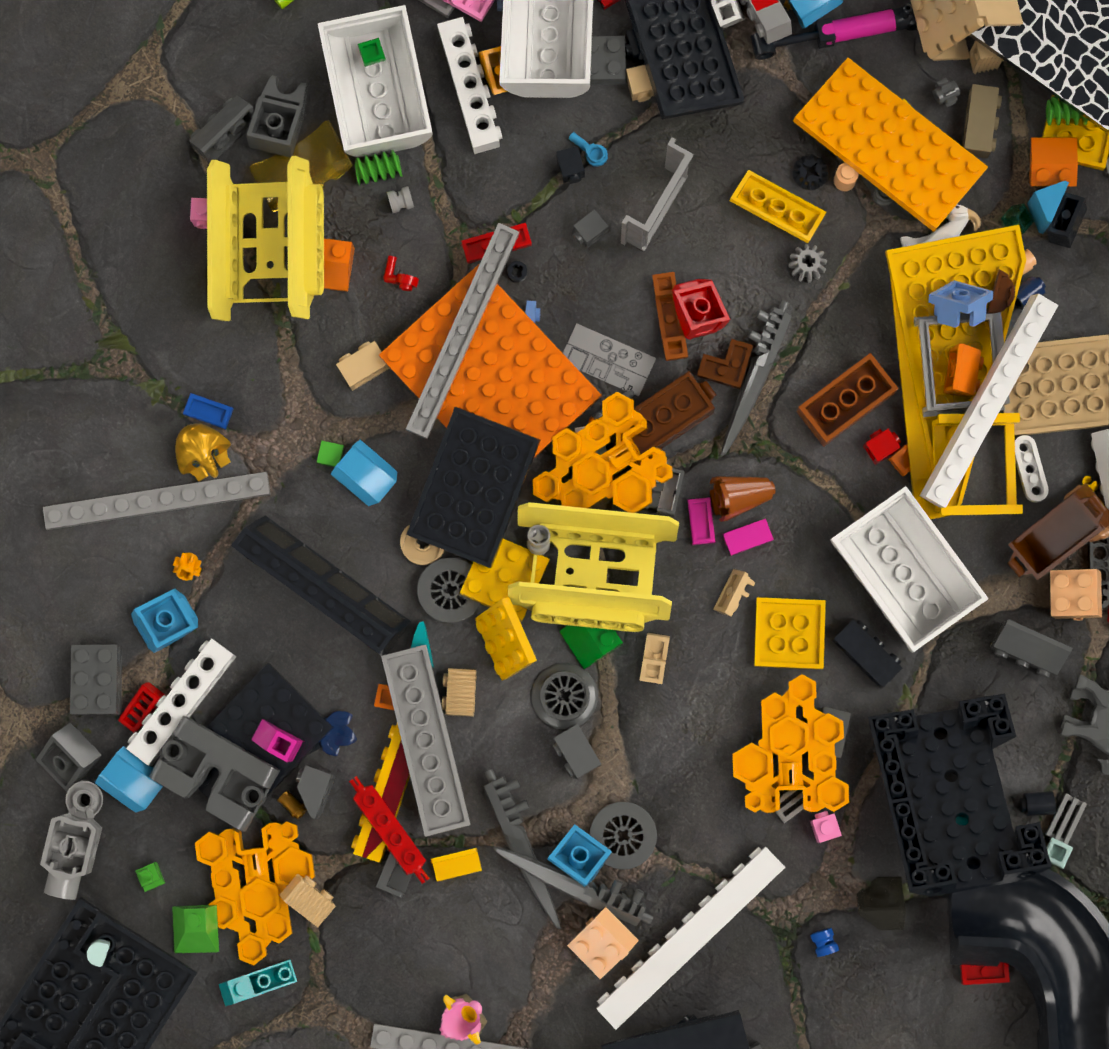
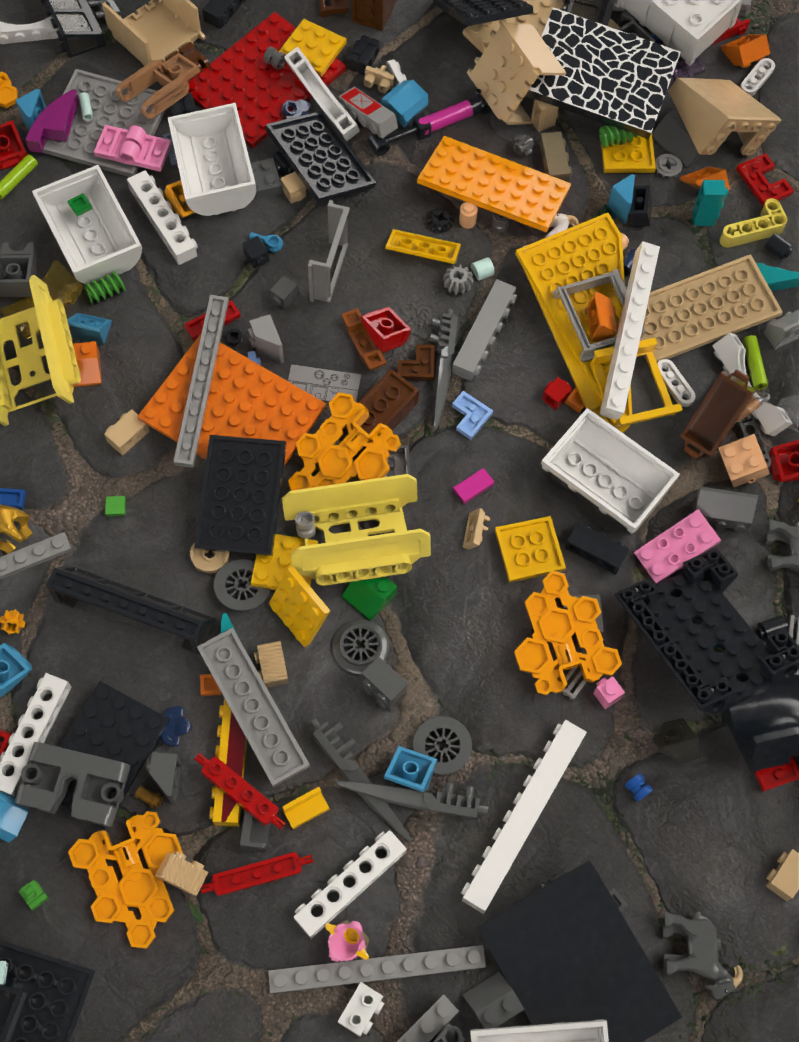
camera: 25 degrees left, 15 degrees down
(195, 929) = (85, 929): bright green slope -> none
(257, 983) = (152, 963): teal slope -> none
(277, 741) = (123, 739): dark pink slope -> none
(349, 214) = (89, 328): none -> dark azure slope
(365, 474) = (147, 513): dark azure slope -> none
(387, 920) = (256, 874): none -> red plate
(400, 199) = (127, 307): light grey wheel -> none
(405, 281) = (146, 363): red plate -> none
(431, 990) = (312, 924): none -> white brick
(551, 286) = (266, 339): none -> light grey slope
(603, 943) = (452, 838): light nougat brick -> none
(654, 658) = (426, 596): tan slope -> none
(701, 521) = (432, 483): dark pink tile -> none
(739, 494) = (456, 453): dark orange cone -> none
(777, 446) = (475, 414): none -> light blue plate
(819, 339) = (483, 330): none -> light grey brick
(843, 254) = (483, 268): none -> light aqua brick
(847, 399) = (519, 365): dark orange brick -> none
(958, 298) = (581, 269): medium blue panel -> none
(960, 678) = (676, 545): none -> bright pink plate
(1003, 293) = (612, 258): reddish brown plate -> none
(1053, 161) = (615, 168): orange slope -> none

